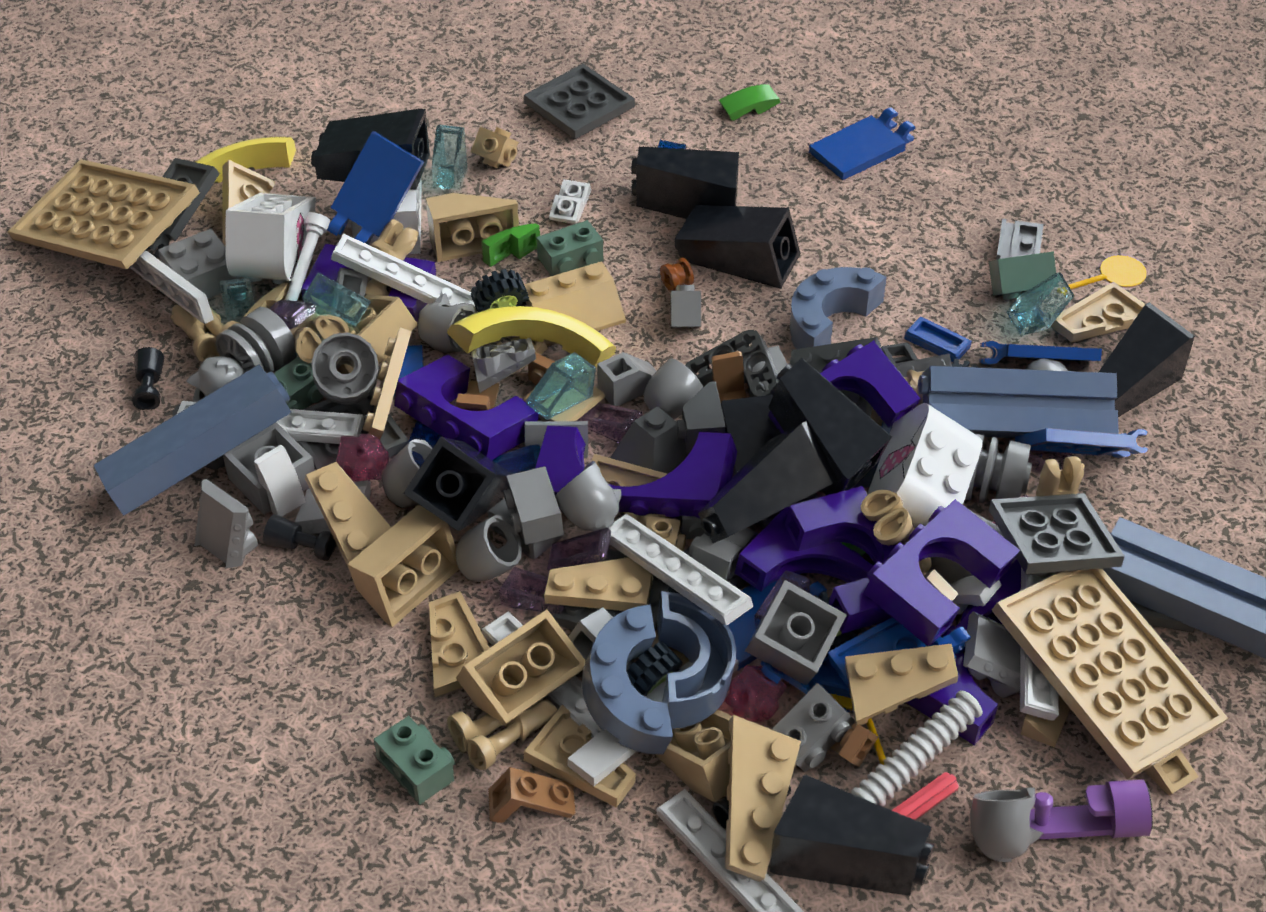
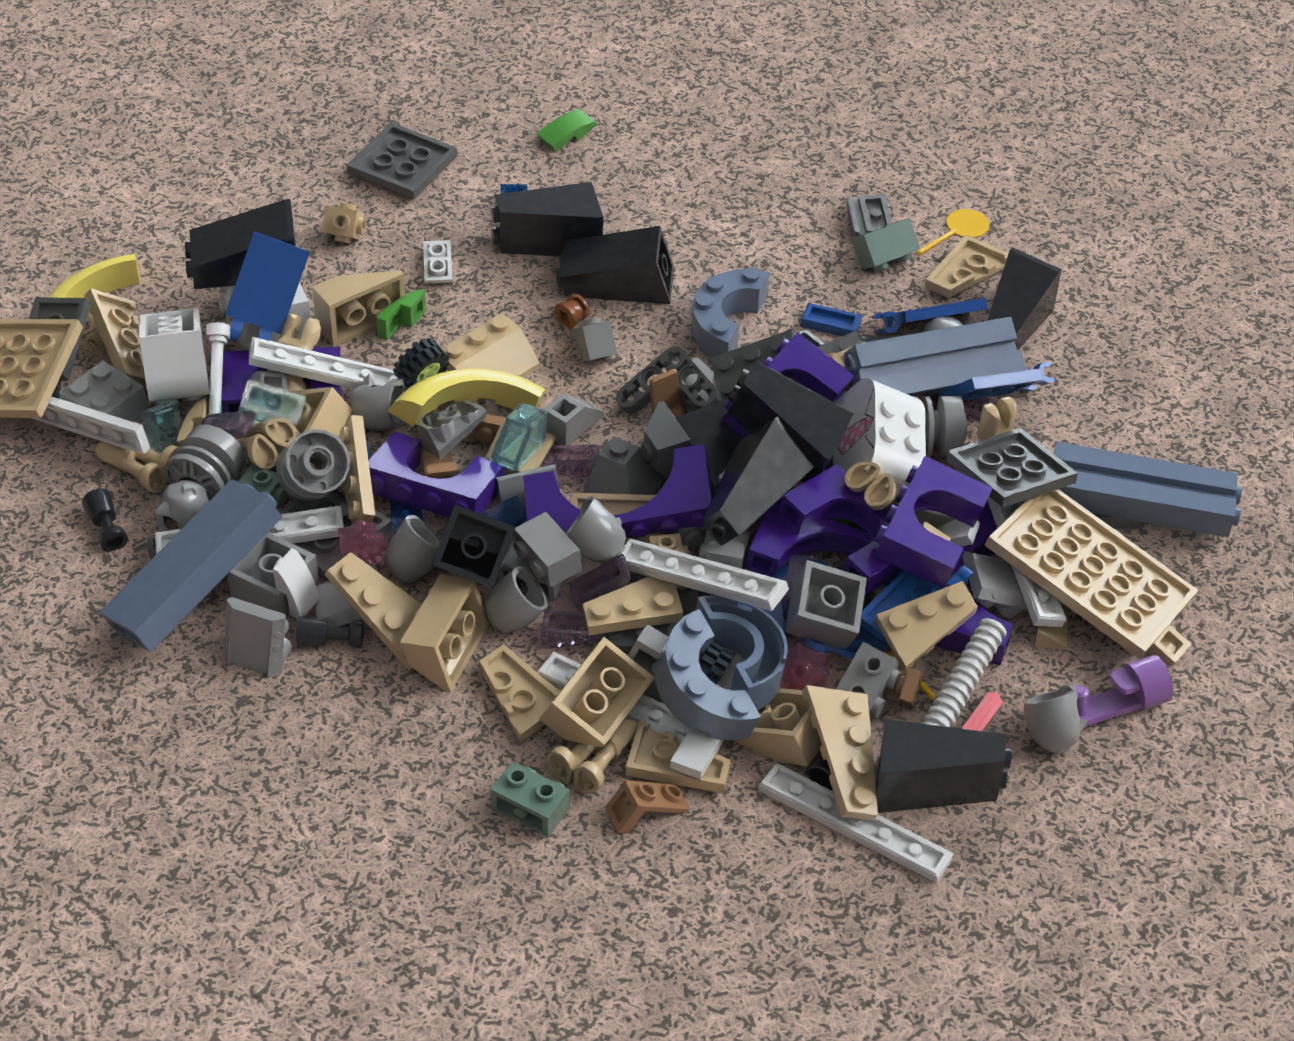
camera: 20 degrees left, 0 degrees up
(449, 157) = (307, 237): clear light blue slope -> none
(570, 248) = (460, 307): sand green brick -> none
(671, 388) = (618, 416): light grey piece -> none
(862, 144) = (689, 151): blue tile -> none
(1040, 305) = (912, 270): clear light blue slope -> none

